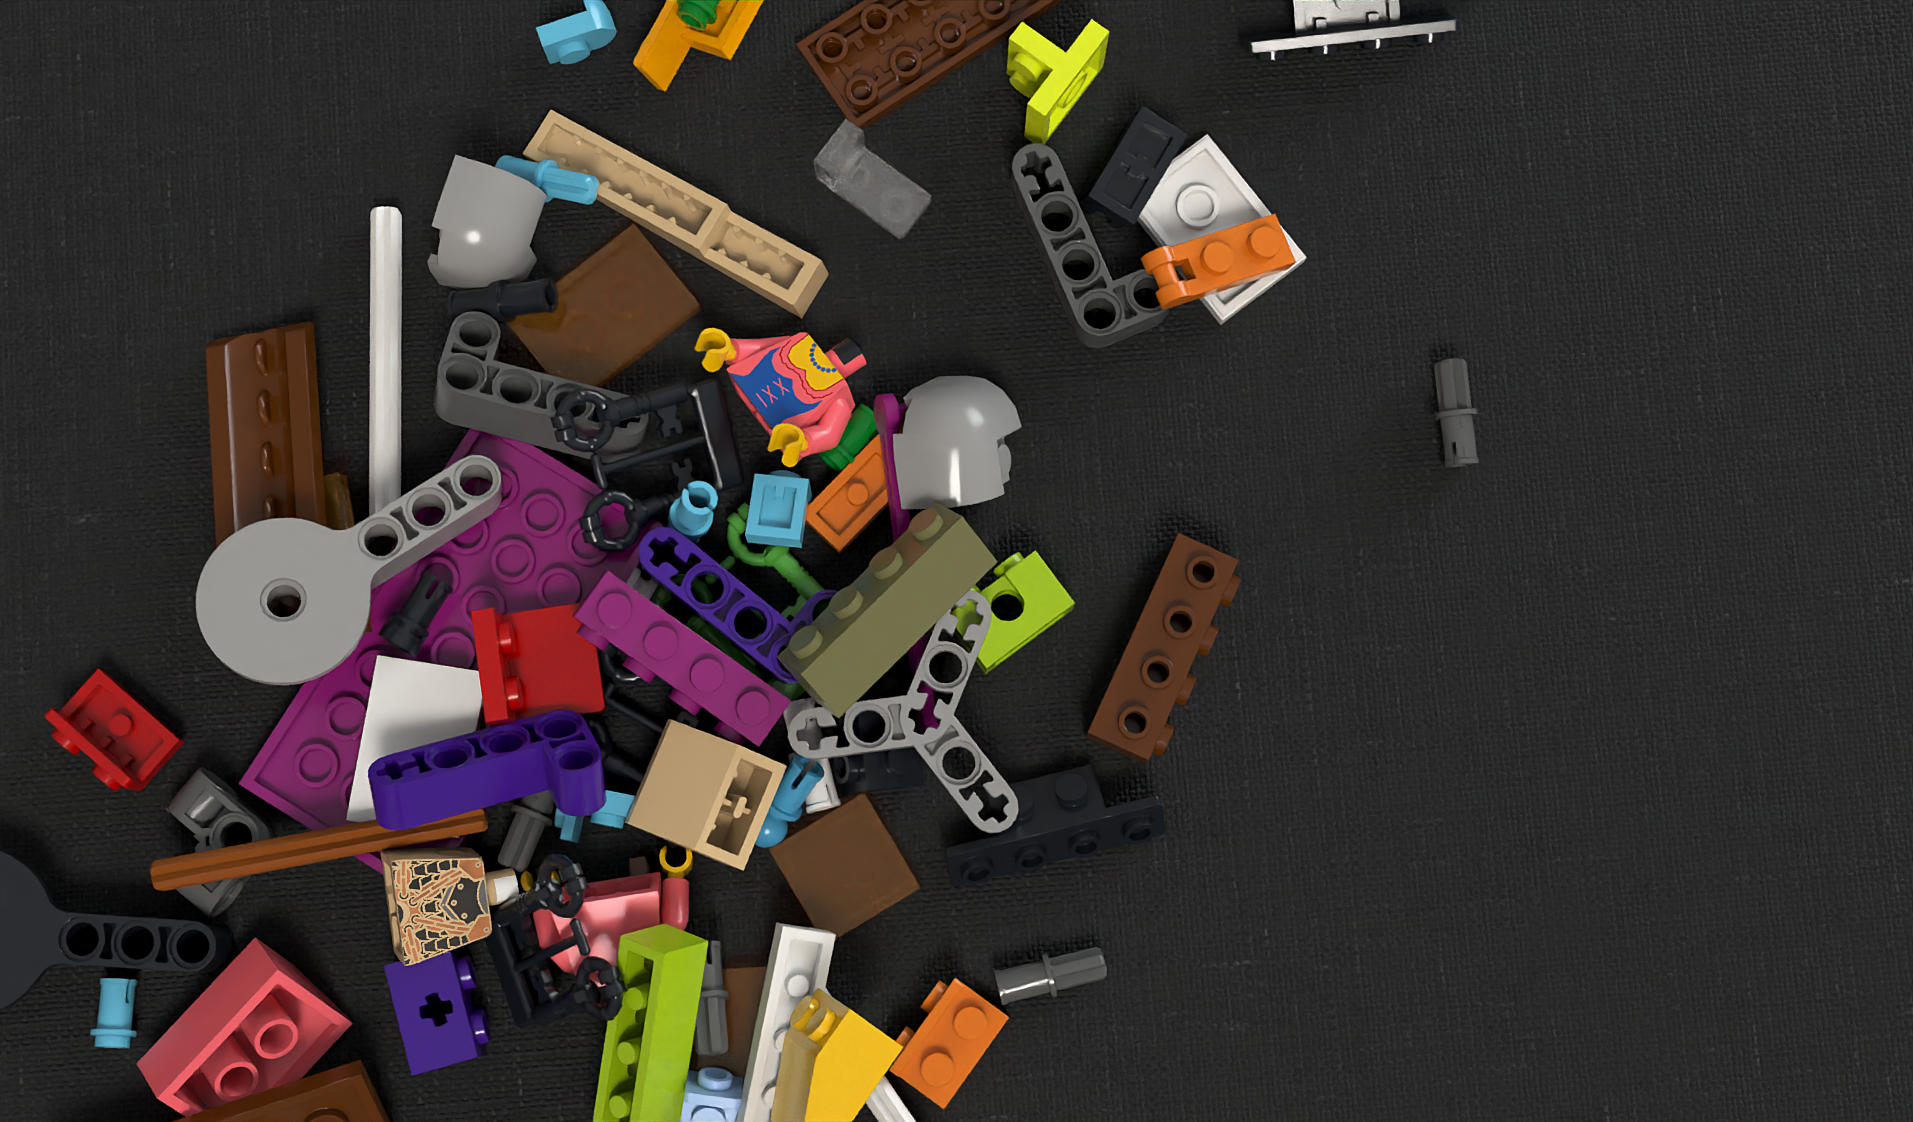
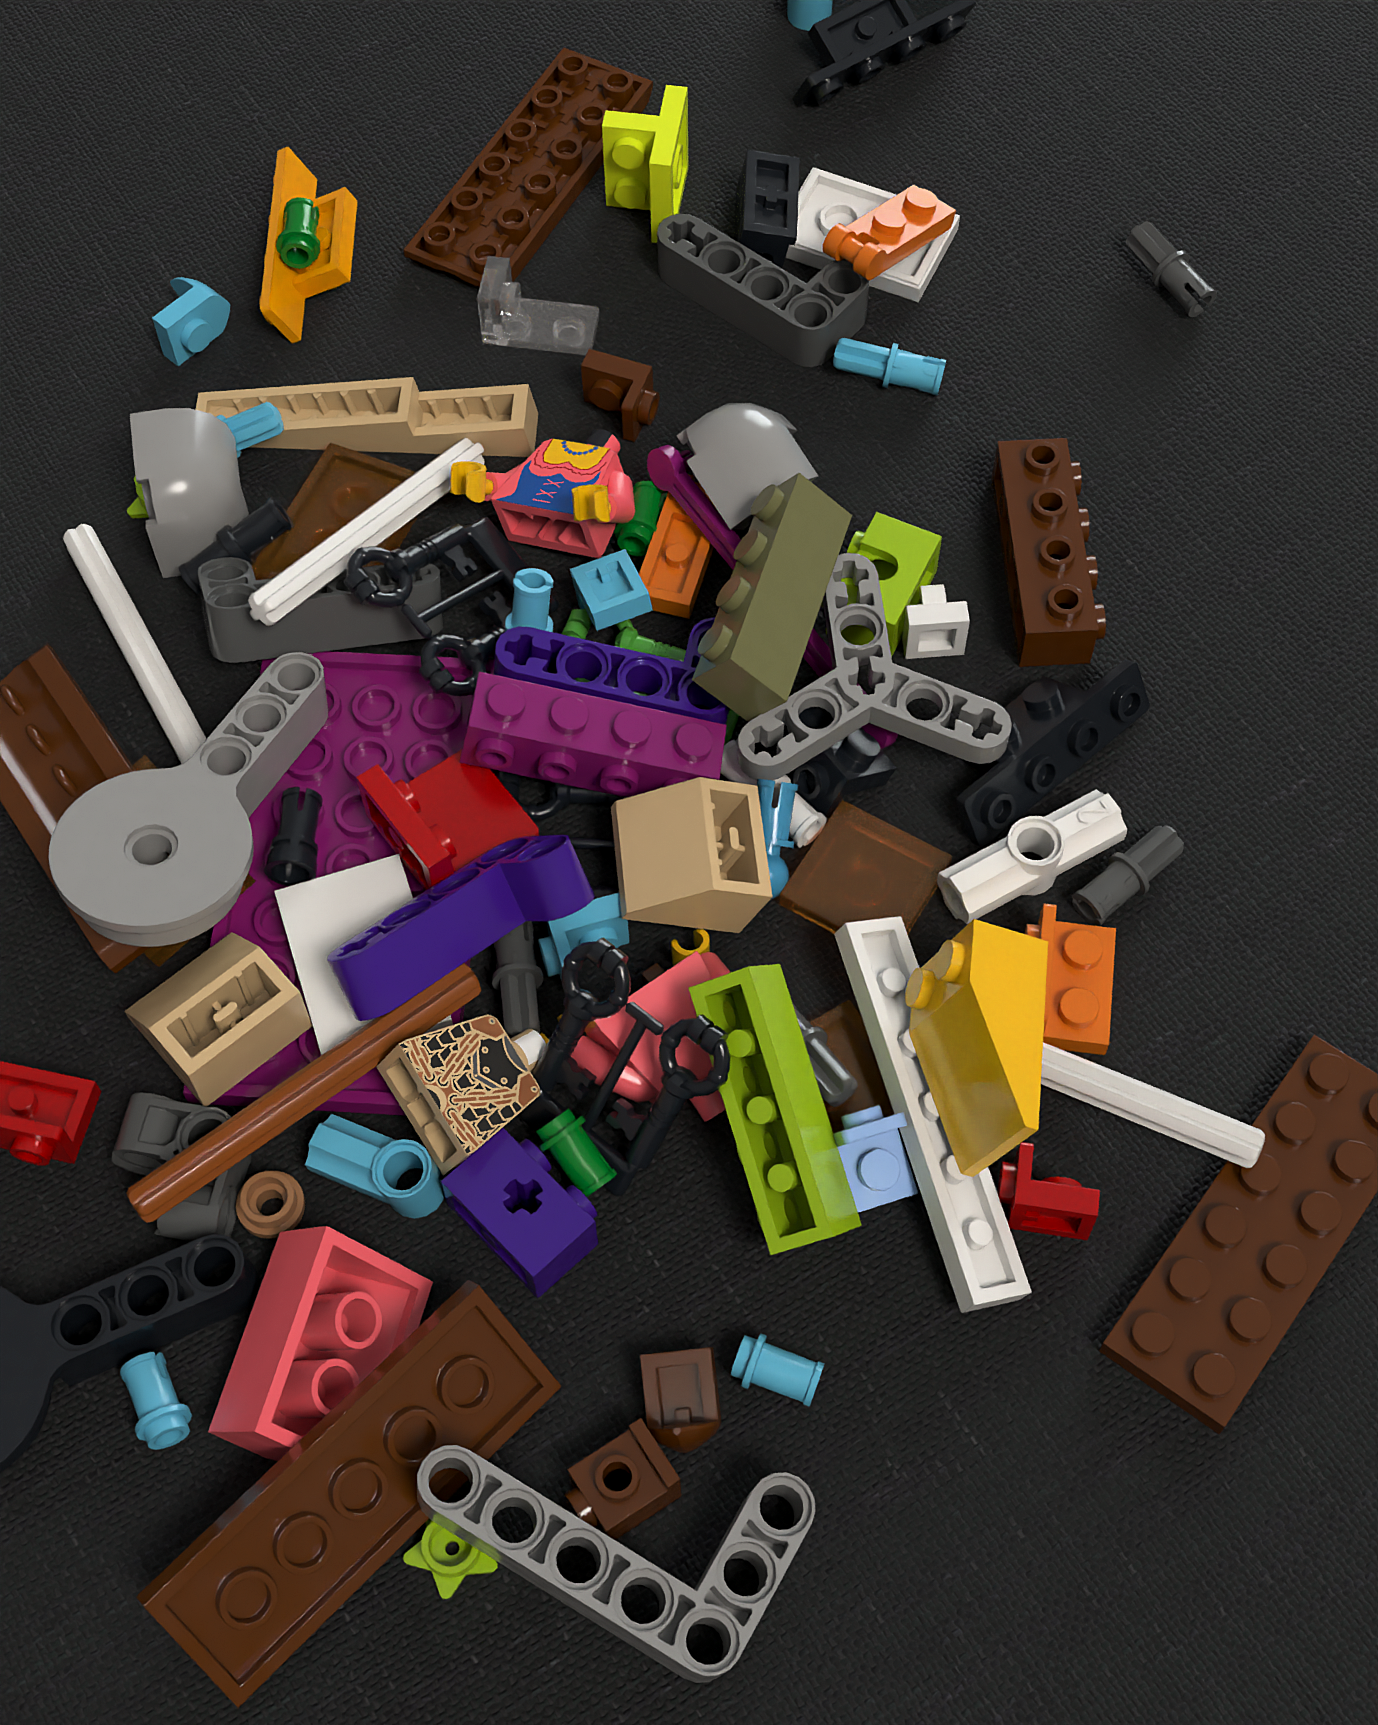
camera: 25 degrees left, 20 degrees down
(248, 897) = (259, 1190): none -> medium nougat plate
(282, 744) = (221, 1016): none -> tan slope
(347, 914) = (374, 1164): none -> medium azure piece
(496, 988) = (575, 1152): none -> green pin
(607, 355) = (369, 528): none -> white axle
(897, 292) = (620, 386): none -> reddish brown bracket
(1019, 923) = (1003, 873): none -> white piece
(1029, 673) = (935, 625): none -> white tile
(1147, 389) = (890, 365): none -> medium azure axle

